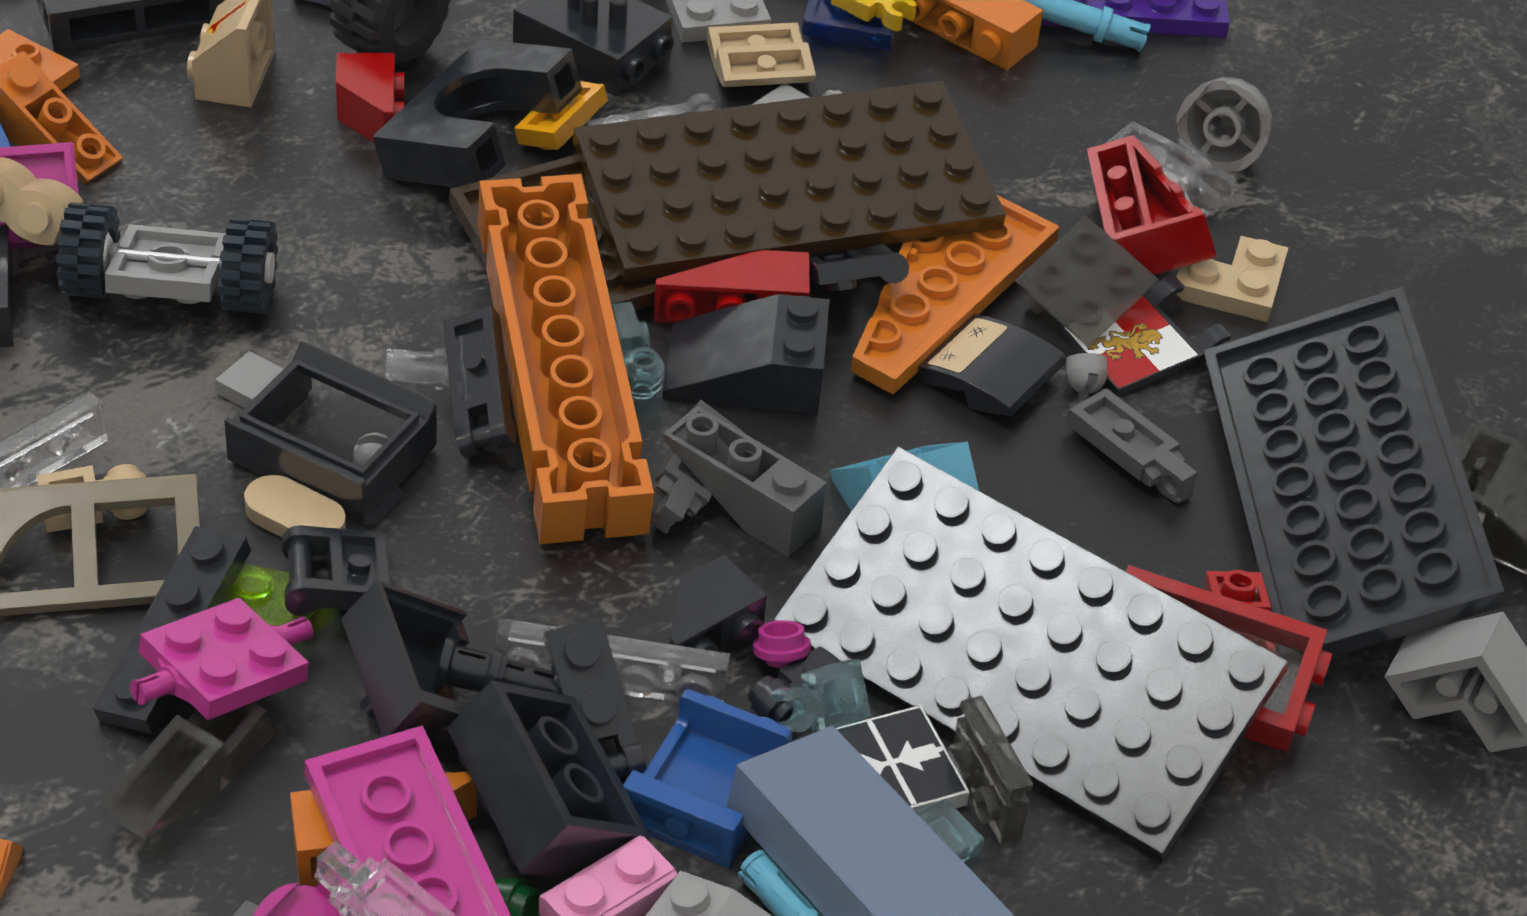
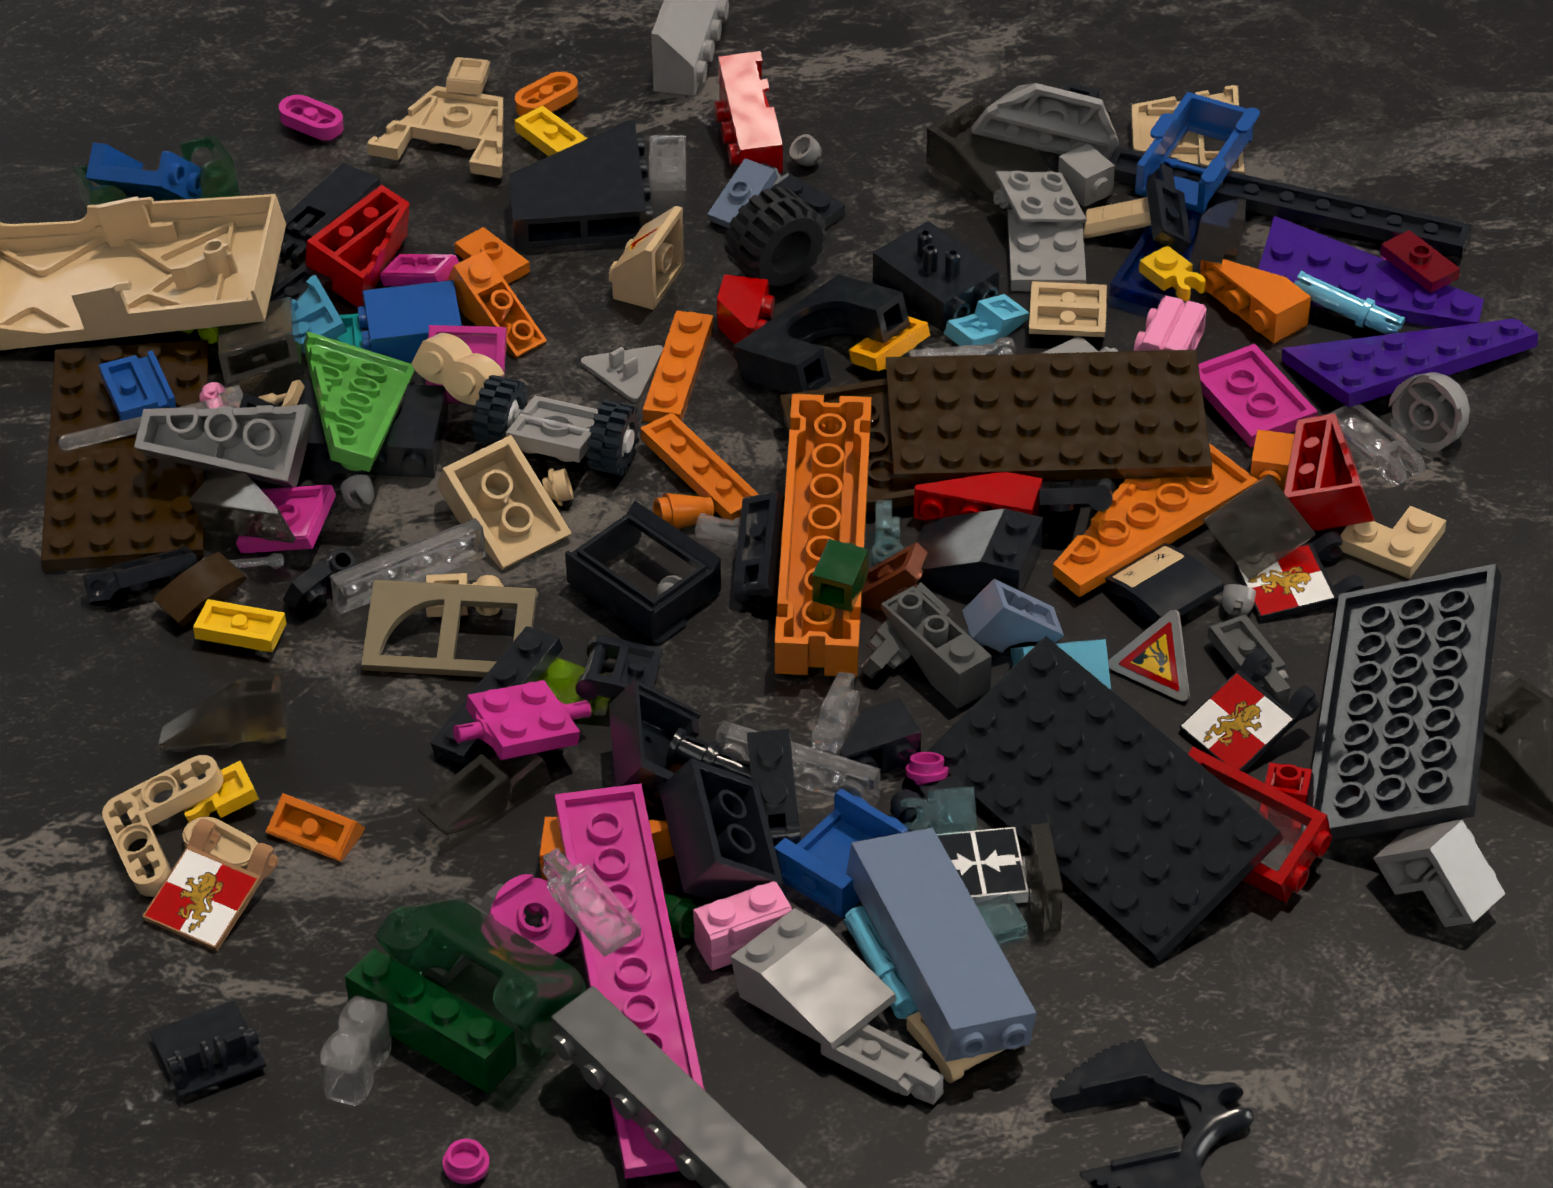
camera: 20 degrees right, 0 degrees up
(125, 360) = (506, 500): none -> tan slope
(186, 337) = (558, 486): none -> tan plate
(234, 182) = (625, 369): none -> light grey piece
(246, 378) = (593, 522): light grey tile -> none
(282, 503) = (596, 617): tan tile -> none
(303, 173) = (678, 365): none -> orange plate
(361, 345) = (682, 510): none -> orange cone
(366, 290) = (697, 464): none -> orange plate
(611, 402) = (840, 575): none -> dark green brick
(649, 589) = (836, 714): none -> clear hinge
(666, 395) = (893, 576): none -> copper slope
(672, 79) = (992, 320): none -> medium azure slope
(823, 431) = (1007, 617): none -> sand blue arch
(892, 58) = (1172, 326): none -> bright pink brick
(1018, 130) = (1252, 393): none -> dark pink plate
(1024, 457) = (1157, 658): none -> piece
(1066, 196) = (1272, 456): none -> orange brick
(1153, 519) = (1243, 719): none -> flag
(1158, 75) = (1376, 365): none -> dark purple wing

